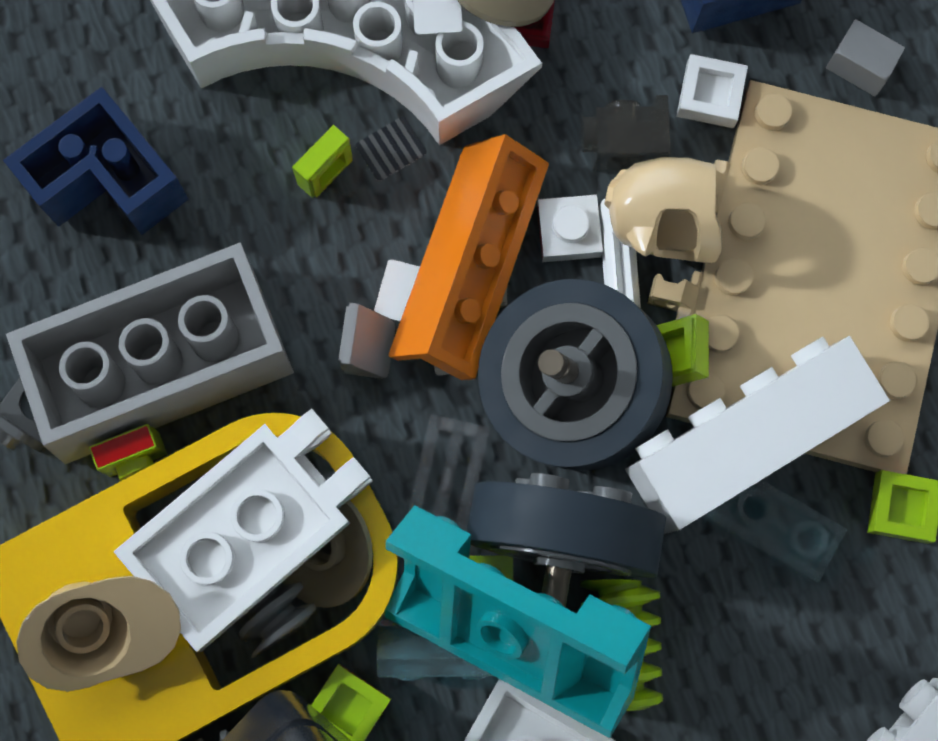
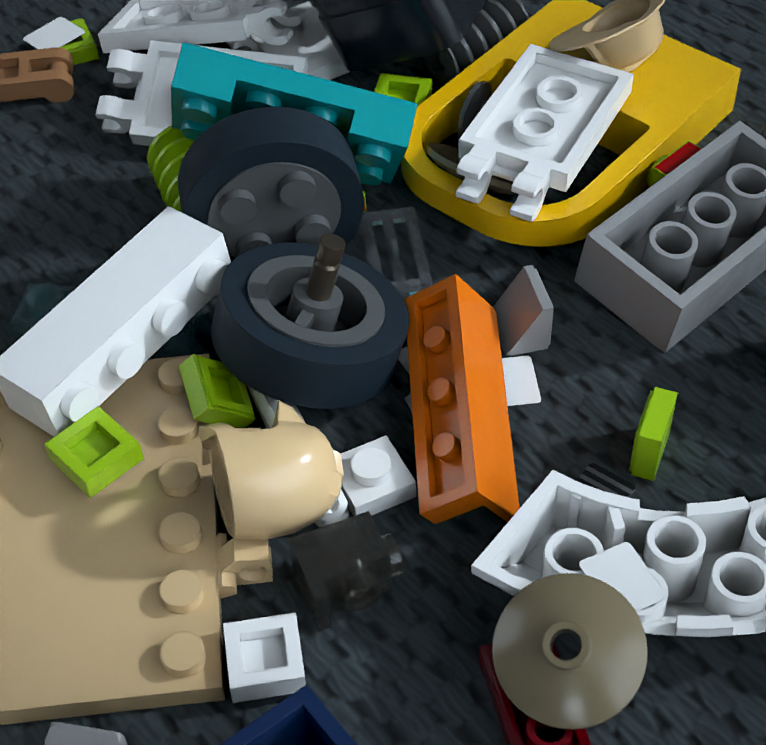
camera: 165 degrees right, 30 degrees down
(804, 313) = (94, 451): none -> lime plate

